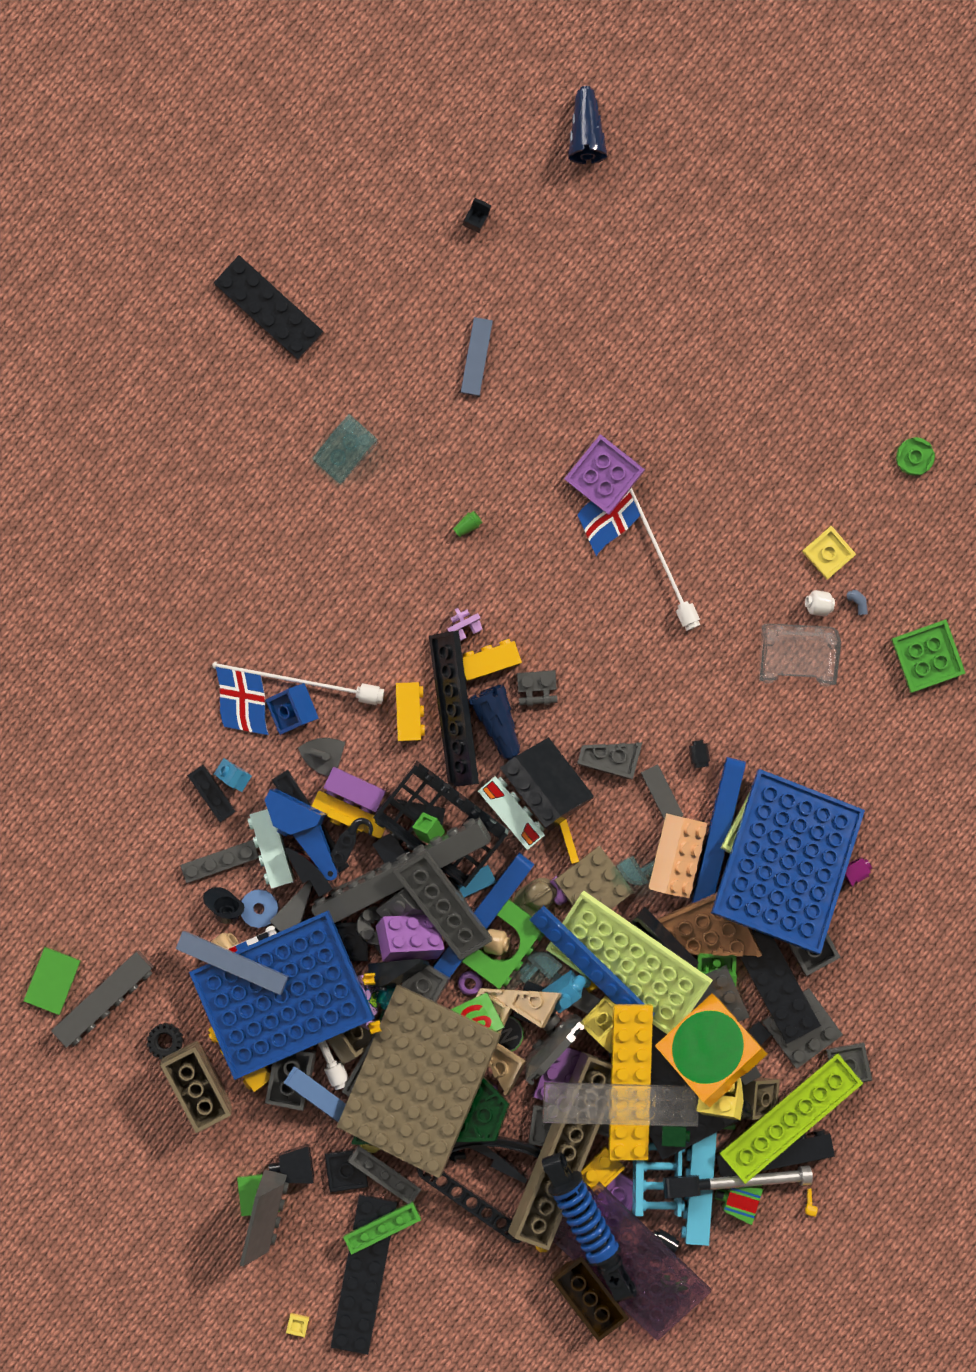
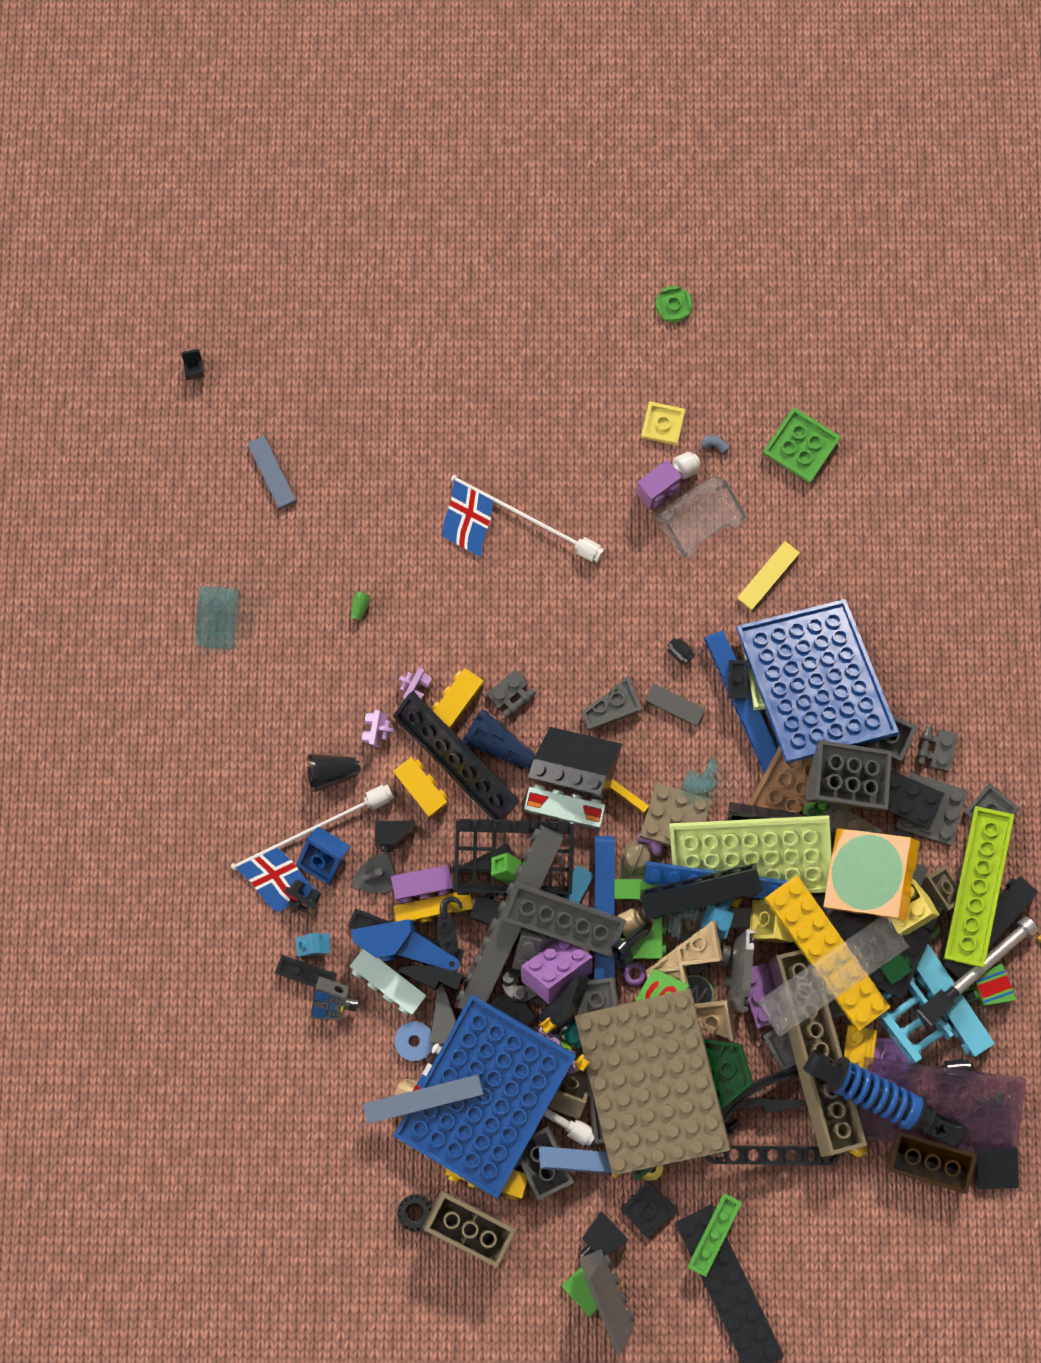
camera: 30 degrees left, 10 degrees down
(52, 980) = (282, 1233): bright green tile -> none
(102, 999) = (336, 1216): dark grey brick -> none
(216, 830) = (331, 1000): none -> torso
(219, 861) = (353, 1026): dark grey plate -> none
(223, 905) = (384, 1059): black piece -> none
(249, 723) = (311, 900): none -> black hips
(268, 307) = (76, 552): black plate -> none
(346, 645) = (330, 770): none -> black cone
(357, 733) = (392, 834): none -> black slope
(384, 1174) = (682, 1188): dark grey plate -> none
(410, 639) = (379, 729): none -> lavender hips
(472, 960) = (621, 948): none -> black piece
(568, 962) = (700, 891): none -> black brick
(586, 137) = (236, 246): dark blue cone -> none
(604, 474) = (440, 488): medium lavender plate -> none
(638, 1338) = (997, 1168): none -> black tile
(677, 856) = (724, 742): light nougat brick -> none
(726, 813) = (737, 679): none -> black plate
(754, 959) = (849, 776): none -> dark grey slope
(784, 605) = (658, 485): none -> medium lavender brick
(817, 744) = (768, 575): none -> light yellow tile
(847, 989) = (943, 749): none -> dark grey plate
(857, 871) = (877, 650): magenta window -> none

